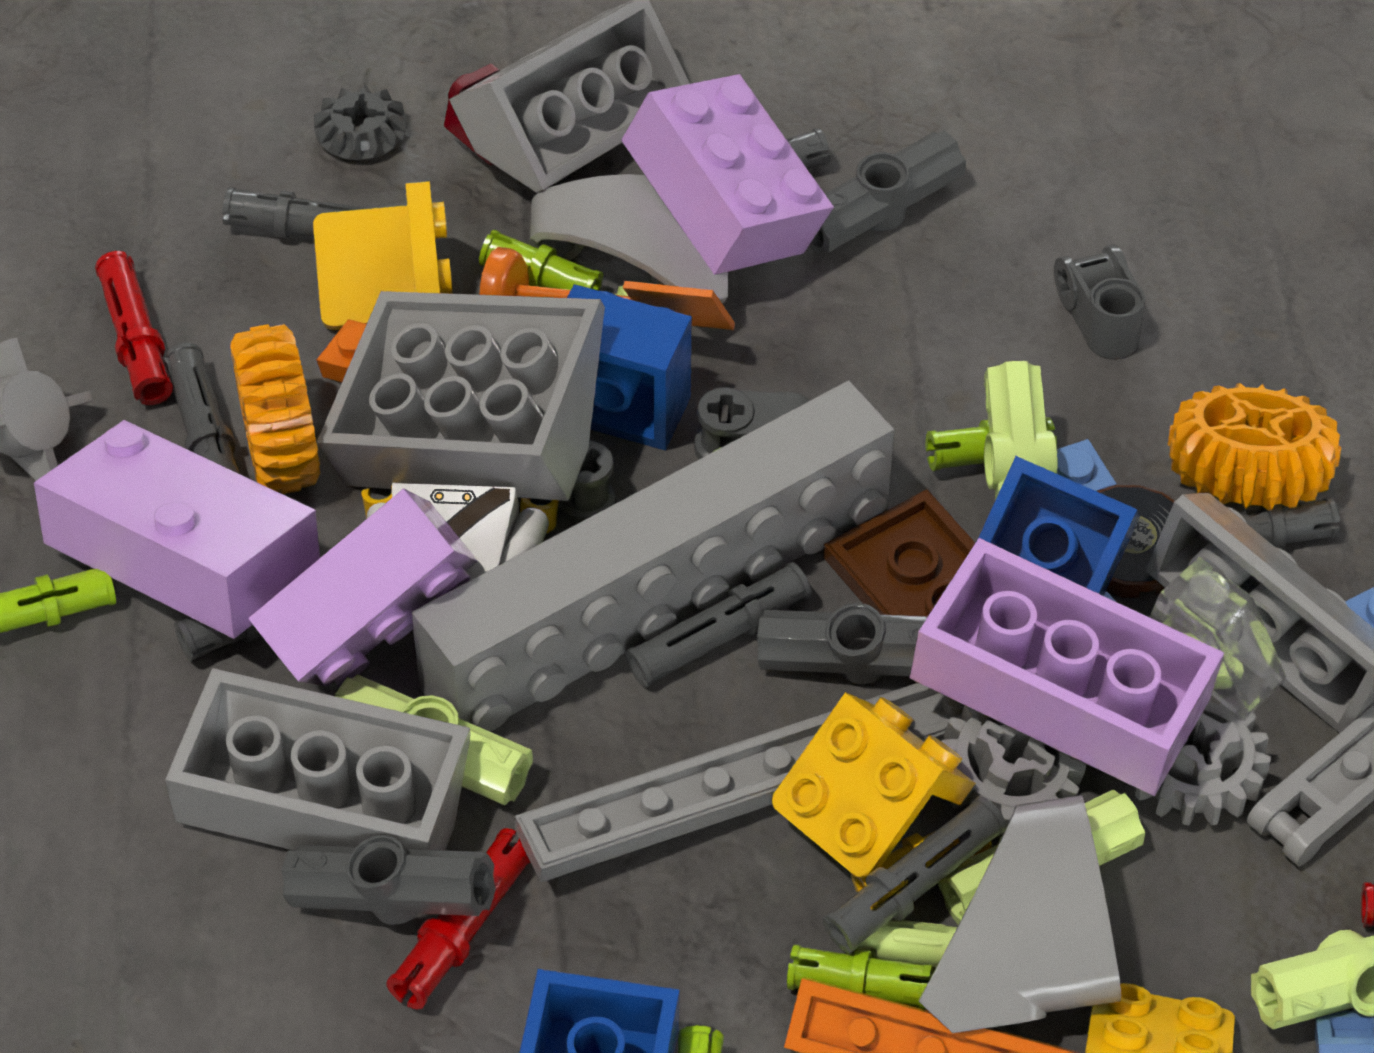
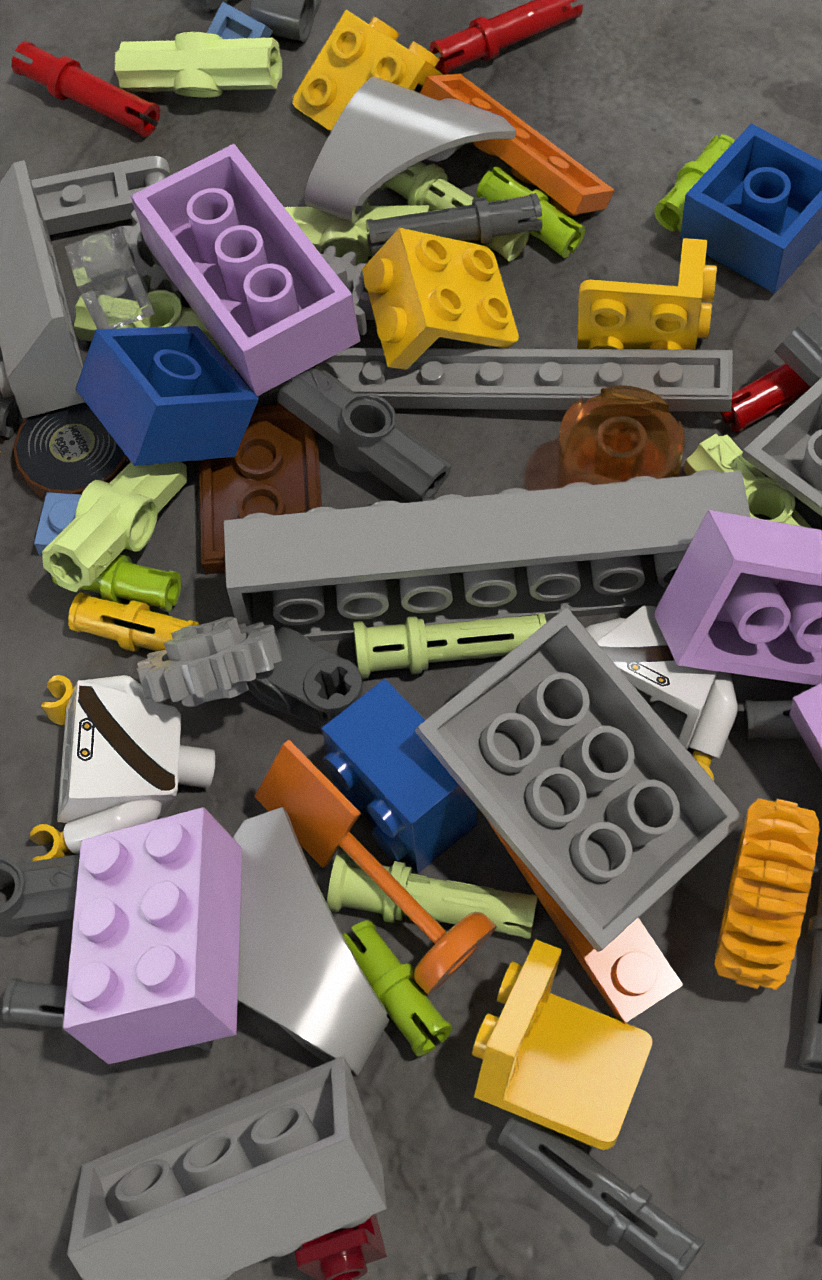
camera: 145 degrees left, 10 degrees up
(594, 717) = (619, 438): none -> clear orange brick
(640, 852) = (650, 314): none -> yellow bracket
(835, 352) = (209, 661): none -> light grey gear
(870, 305) = (116, 760): none -> white torso
(940, 414) = (98, 617): none -> yellow pin

